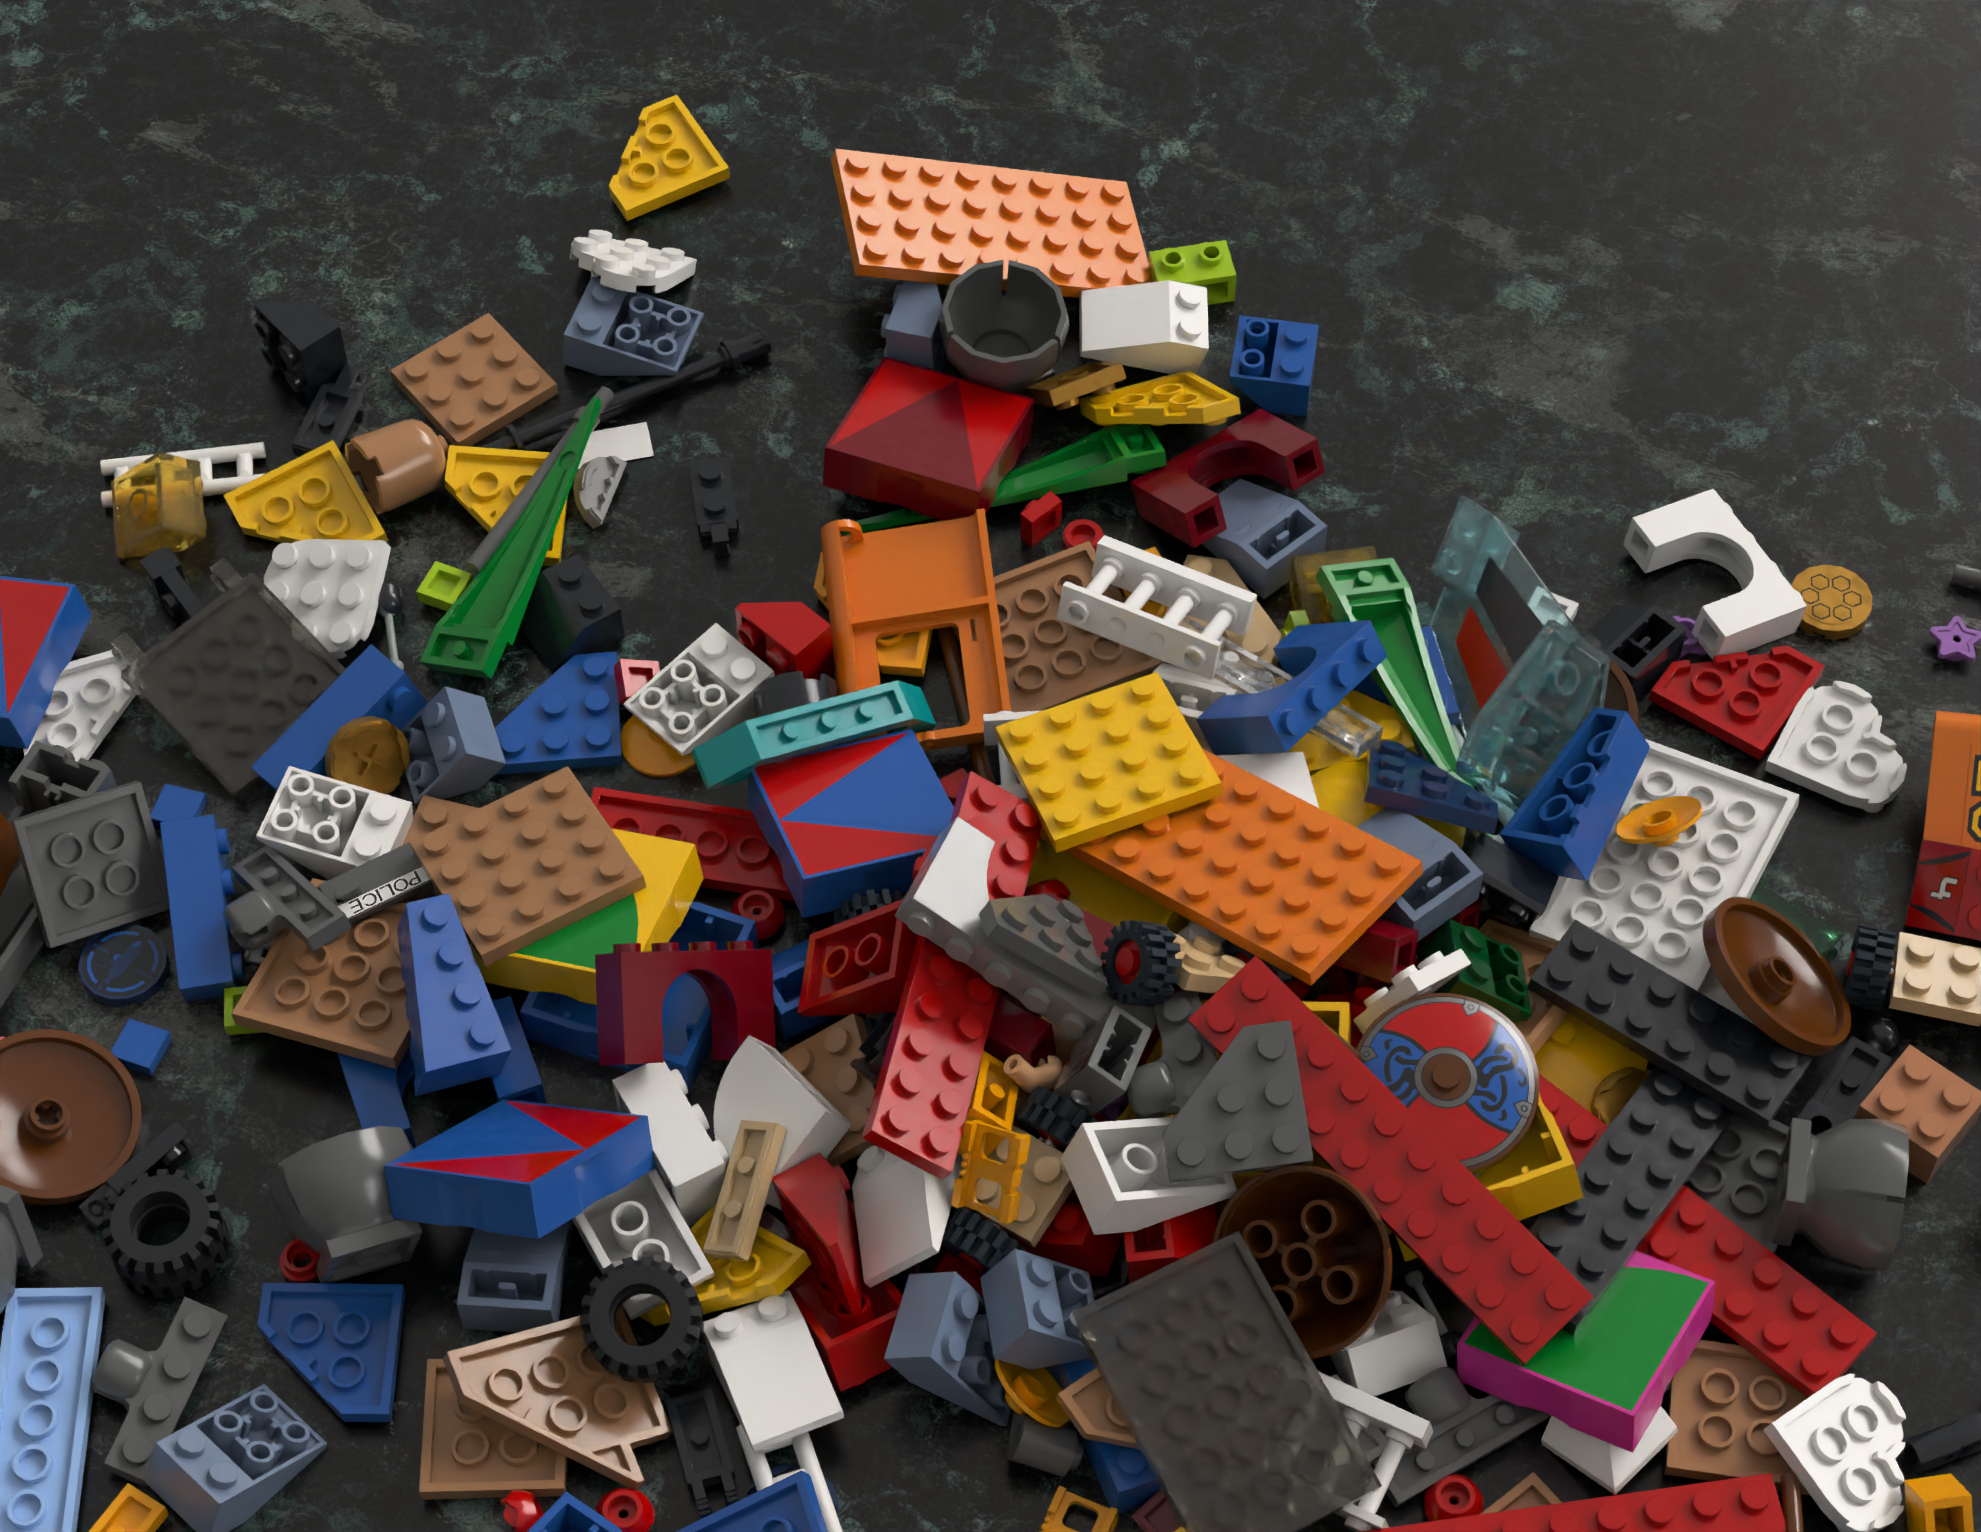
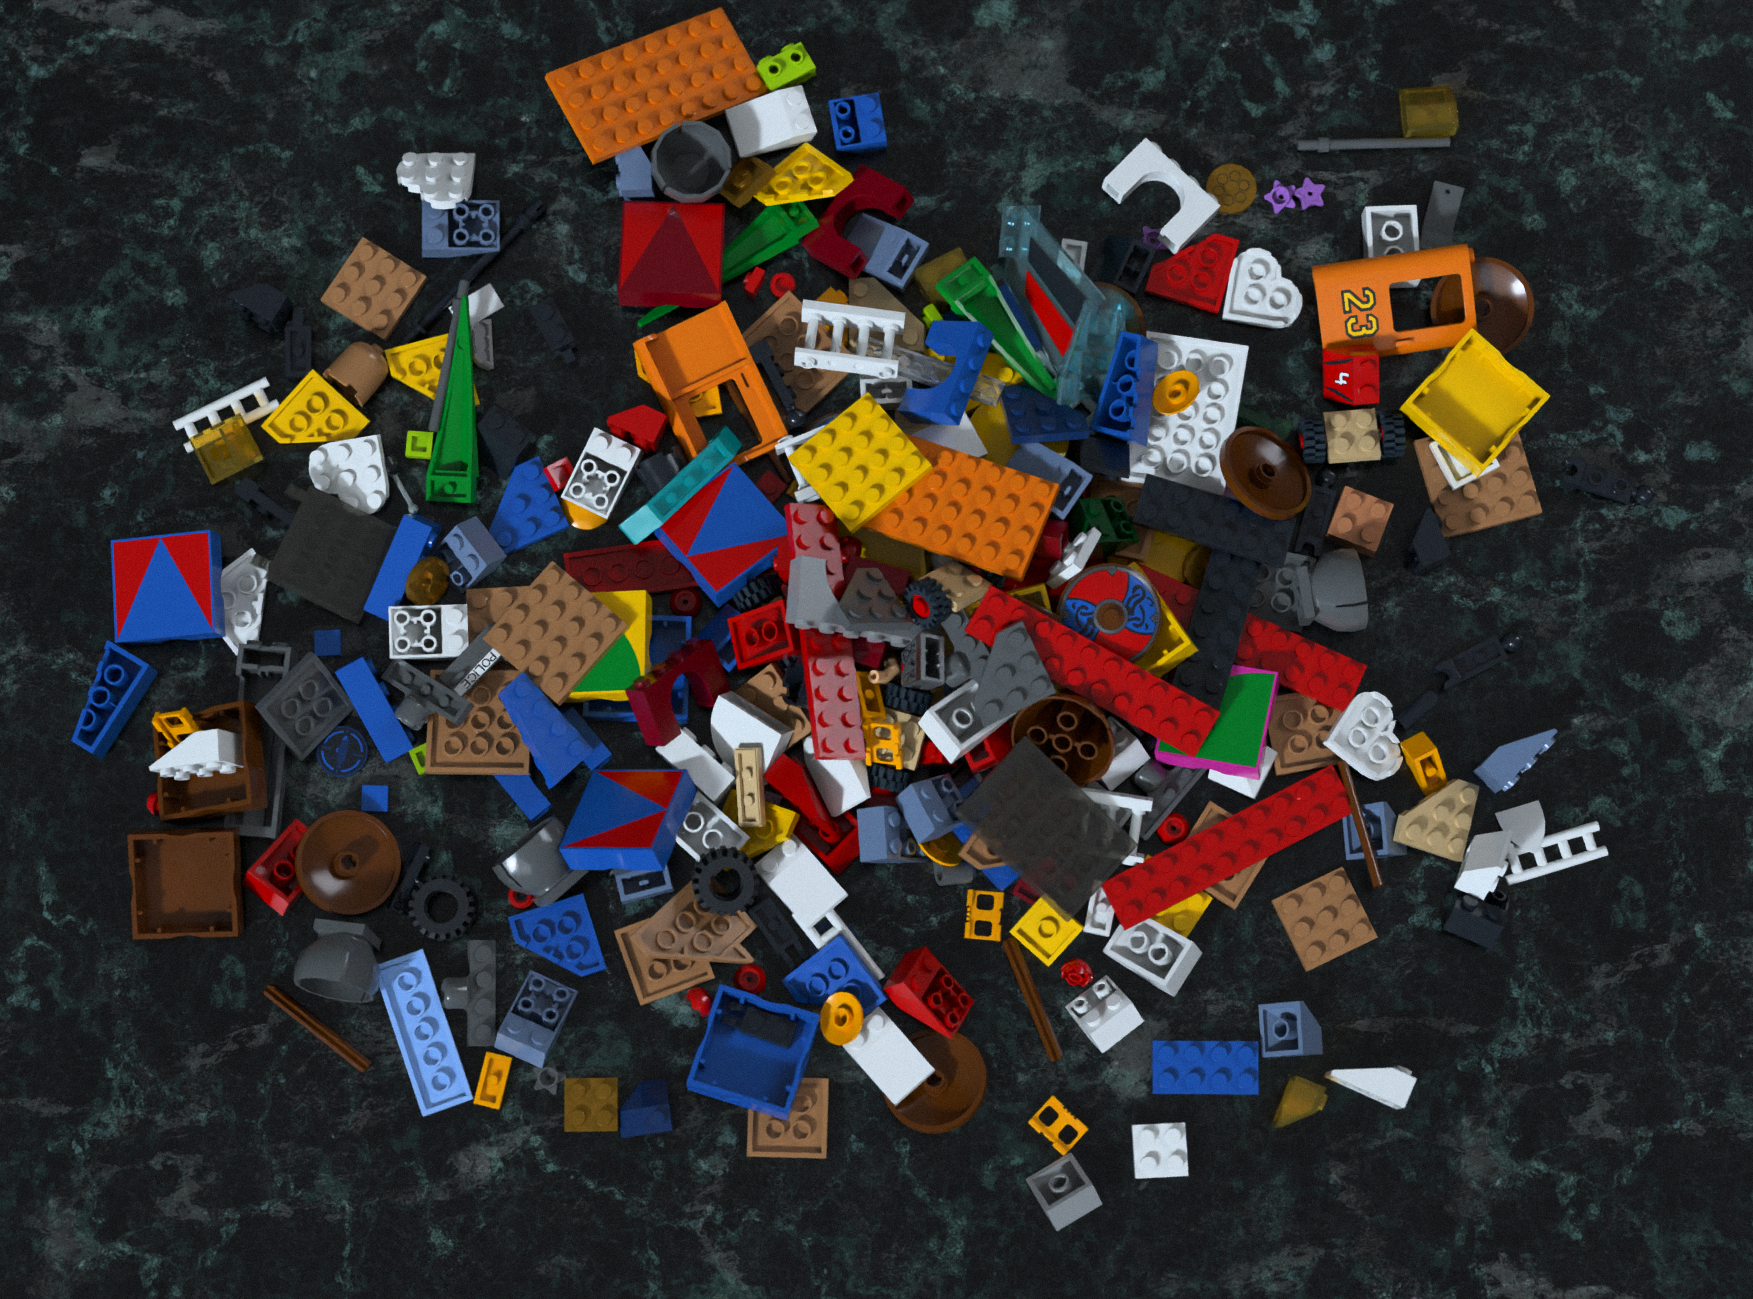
camera: 20 degrees left, 25 degrees up
(665, 160) = (425, 82): yellow plate -> none
(1015, 614) = (763, 358): none -> black plate
(1908, 620) = (1278, 203): none -> medium lavender plate

